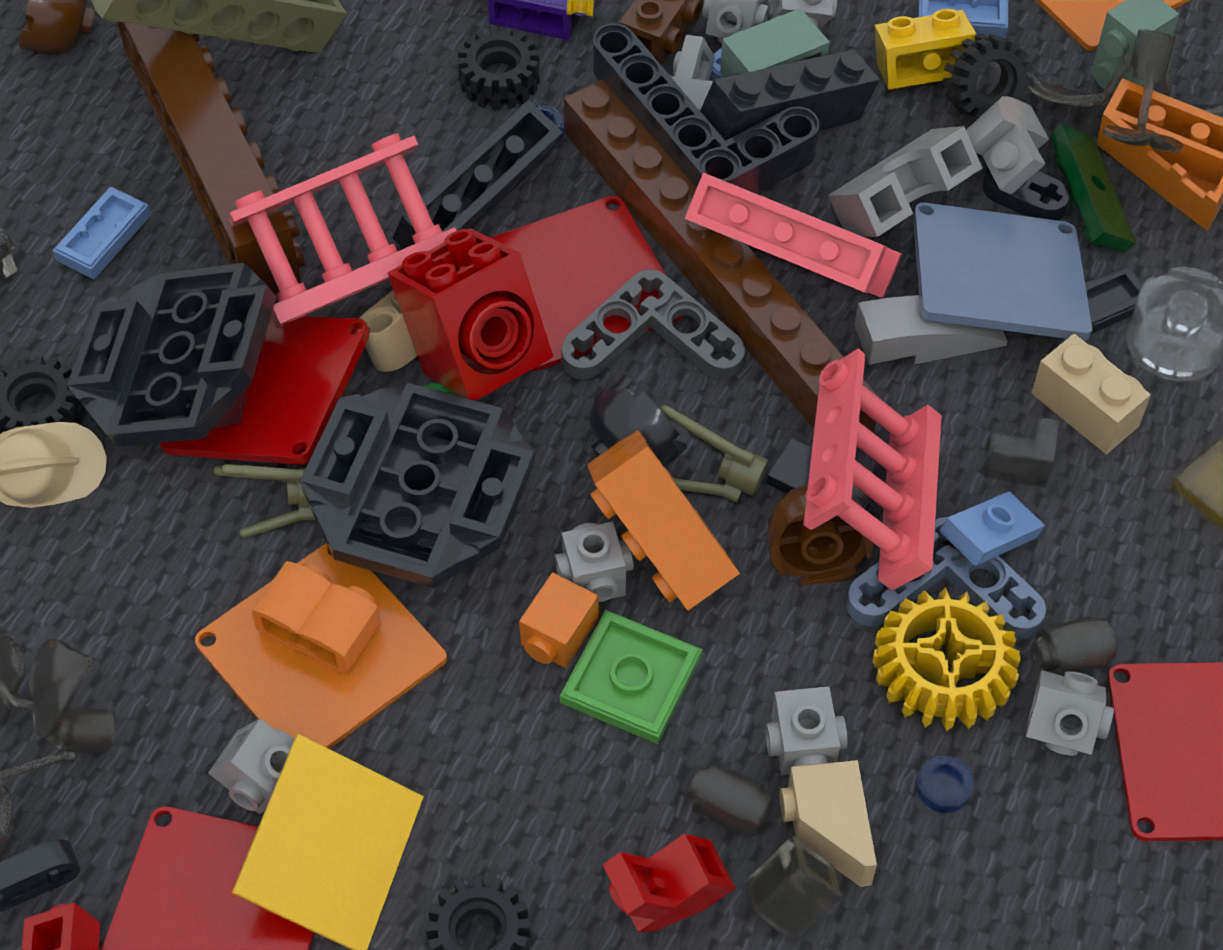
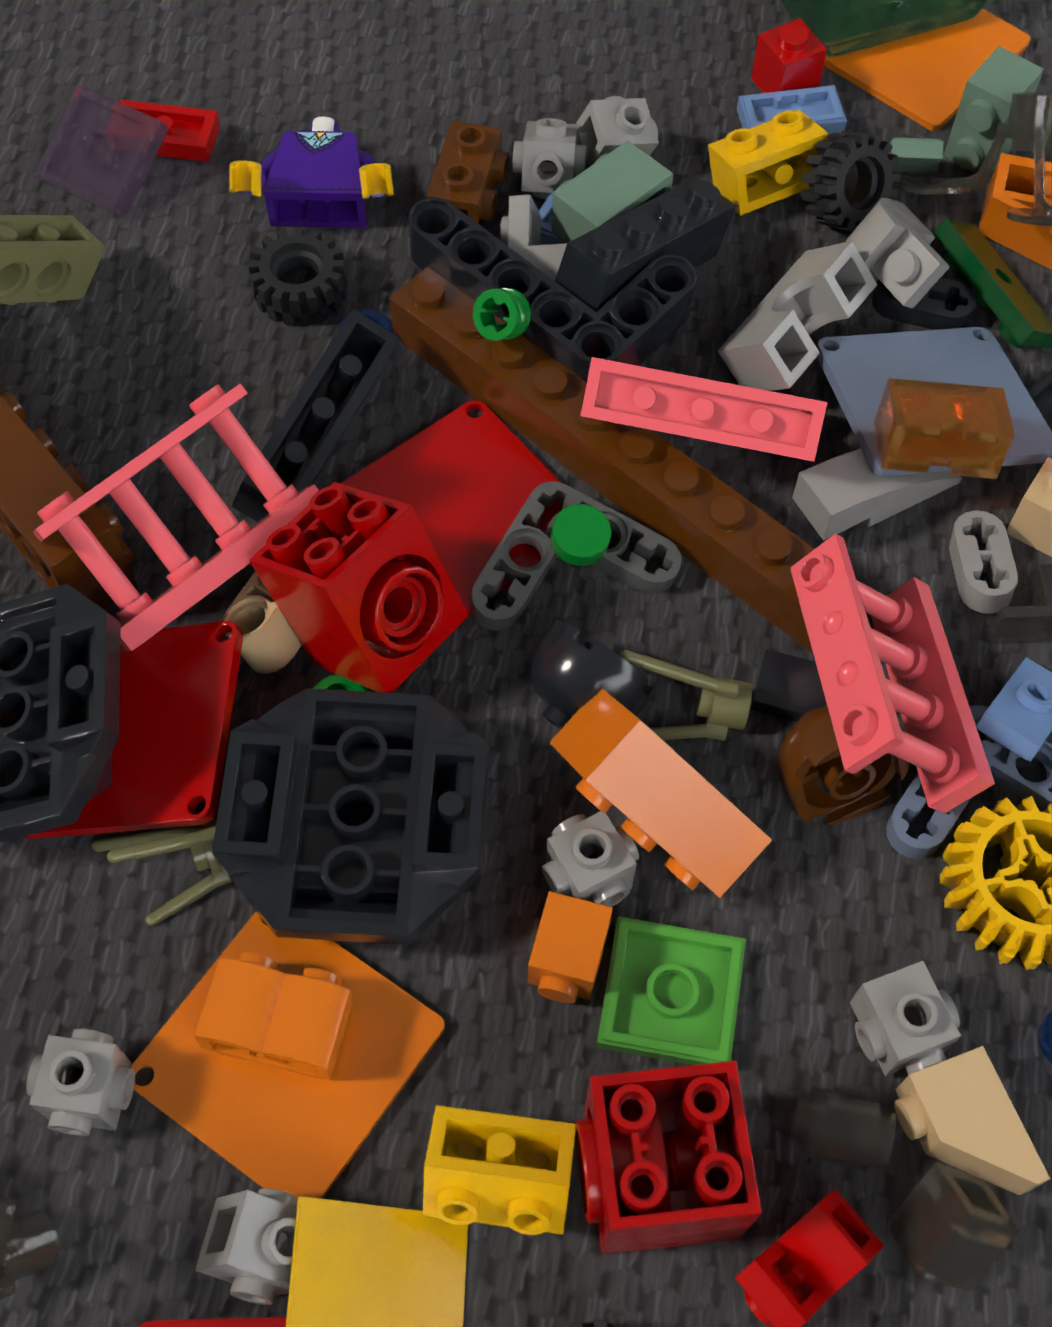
camera: 15 degrees left, 5 degrees up
(160, 628) = (99, 1093): none -> light grey brick
(452, 758) = (498, 1170): none -> yellow brick
(577, 775) = (666, 1158): none -> red brick
(635, 120) = (518, 314): none -> green bush
(663, 315) = (580, 535): none -> green tile
(985, 289) = (943, 427): none -> clear orange brick
(990, 408) = (994, 560): none -> light grey beam
(1056, 67) = (917, 154): none -> sand green tile

